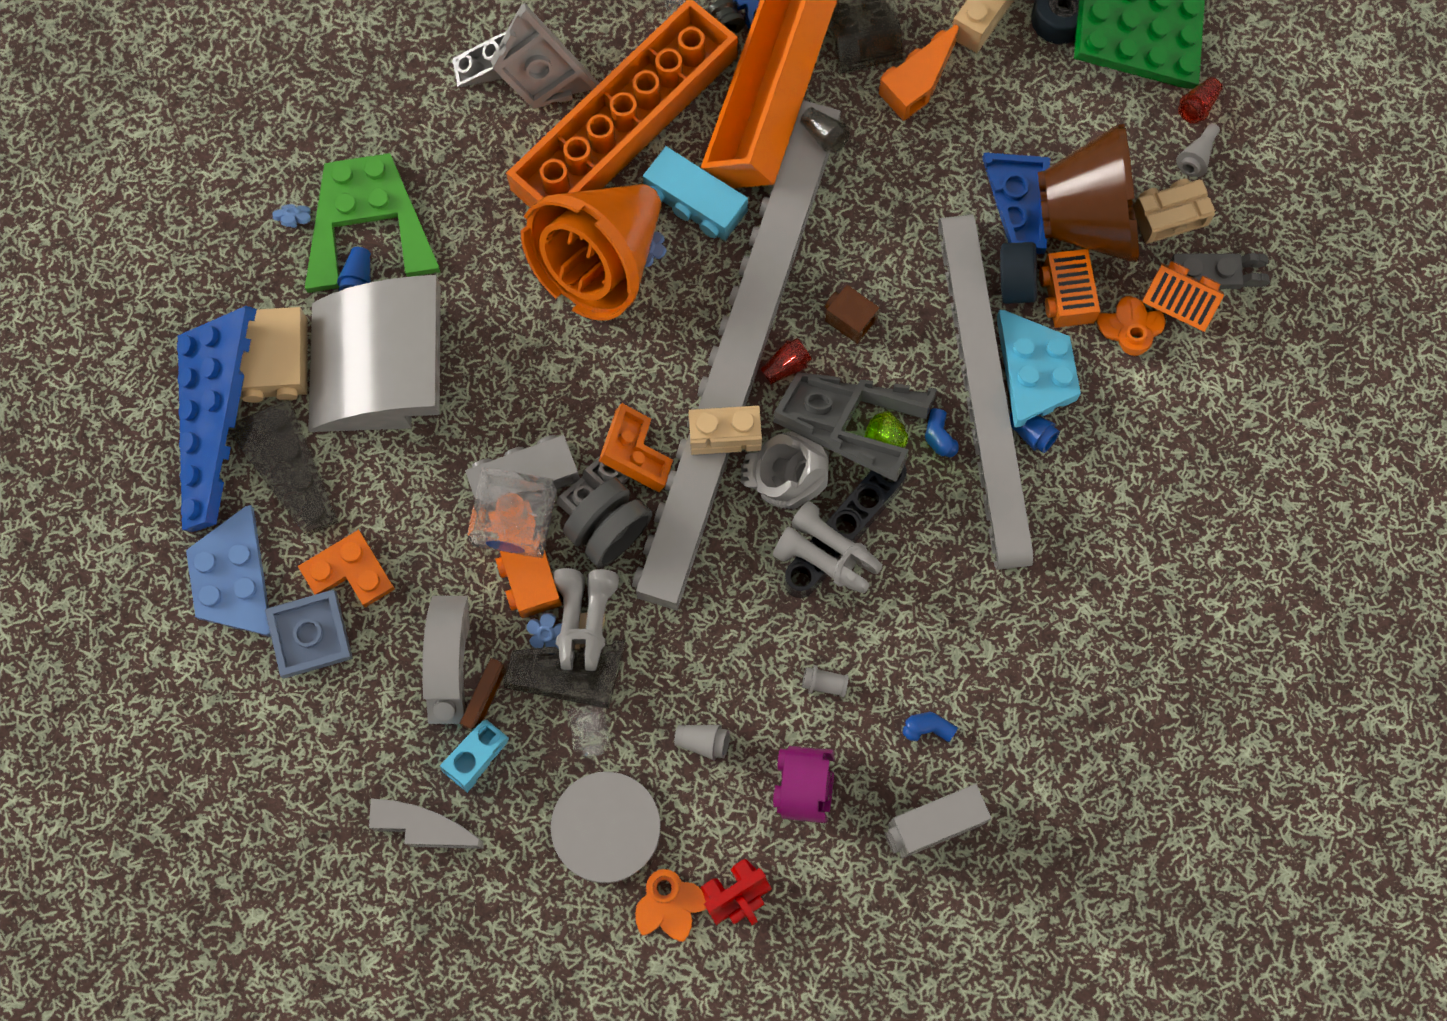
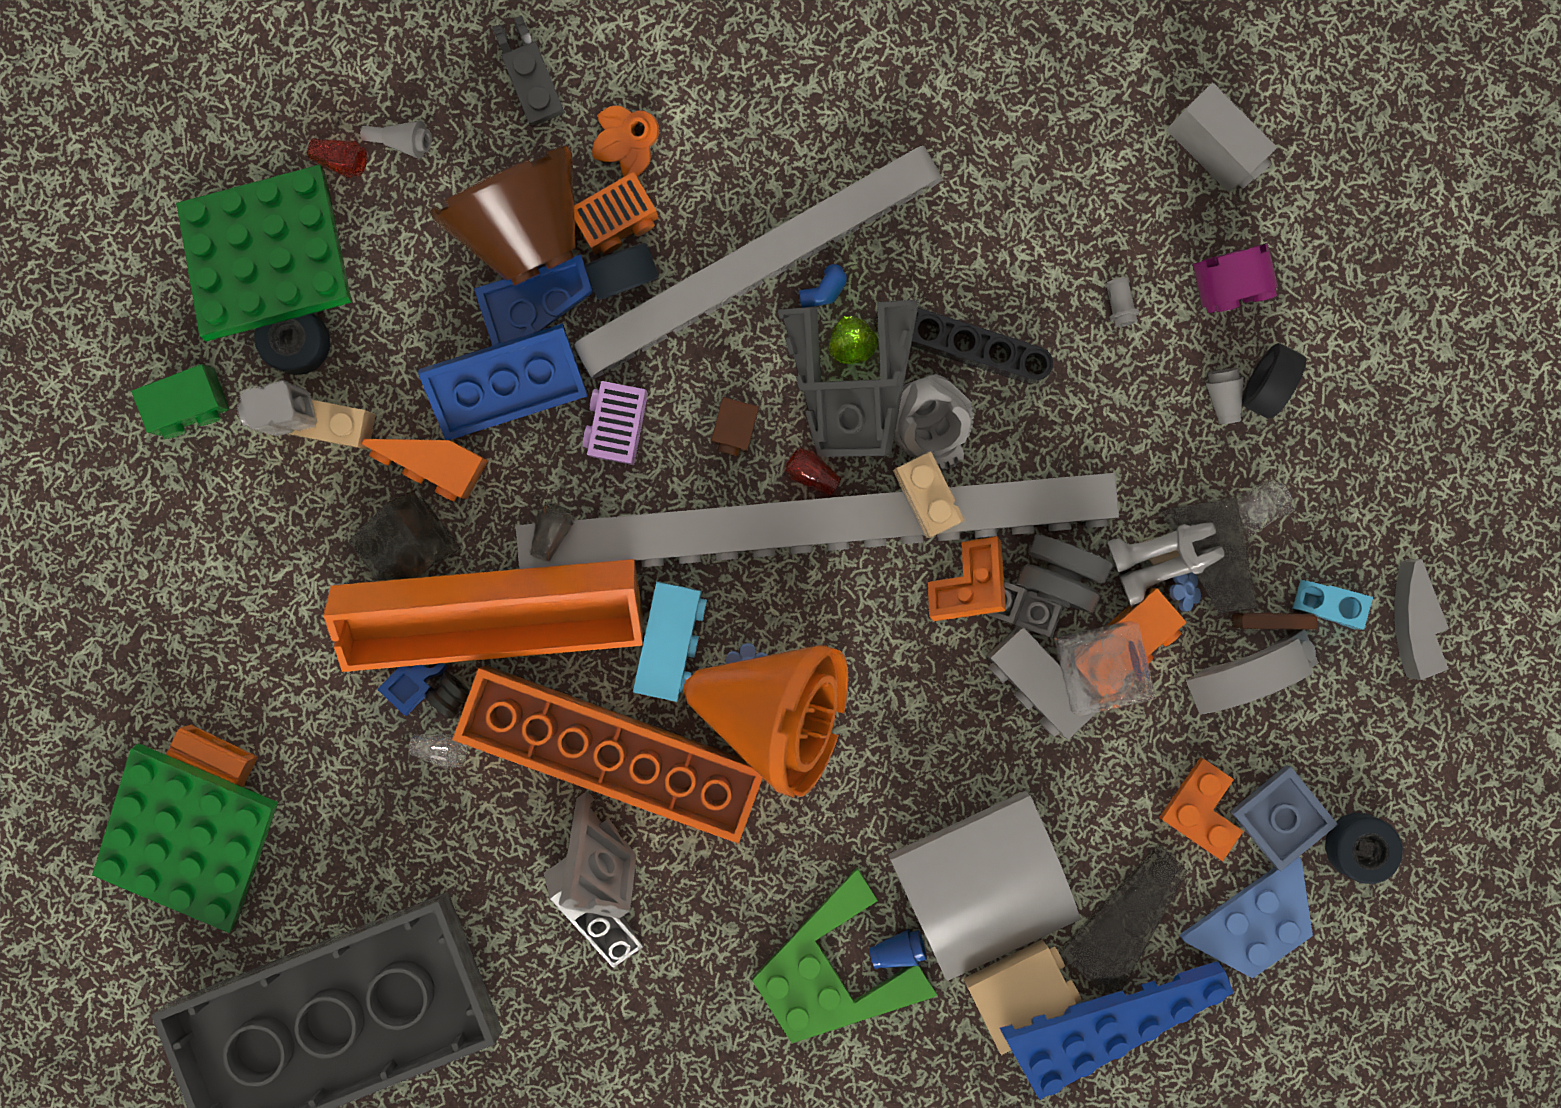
camera: 115 degrees left, 15 degrees up
(239, 682) = (1377, 853): none -> black wheel
(290, 215) = (862, 1048): medium blue plant -> none
(605, 827) = (1343, 452): light grey tile -> none
(669, 911) = (1392, 361): orange plate -> none
(697, 779) = (1274, 381): none -> black tyre
(739, 899) = (1369, 315): red hips -> none
(809, 522) = (983, 375): light grey piece -> none
(892, 223) = (616, 422): none -> lavender brick
(926, 723) = (1120, 190): blue arm -> none
(962, 149) = (503, 382): none -> blue plate
(1037, 367) = (716, 216): medium azure wing -> none
(1037, 433) = (781, 196): blue cone -> none
(1173, 210) = (480, 137): tan brick -> none
(1183, 295) = (578, 94): orange brick -> none

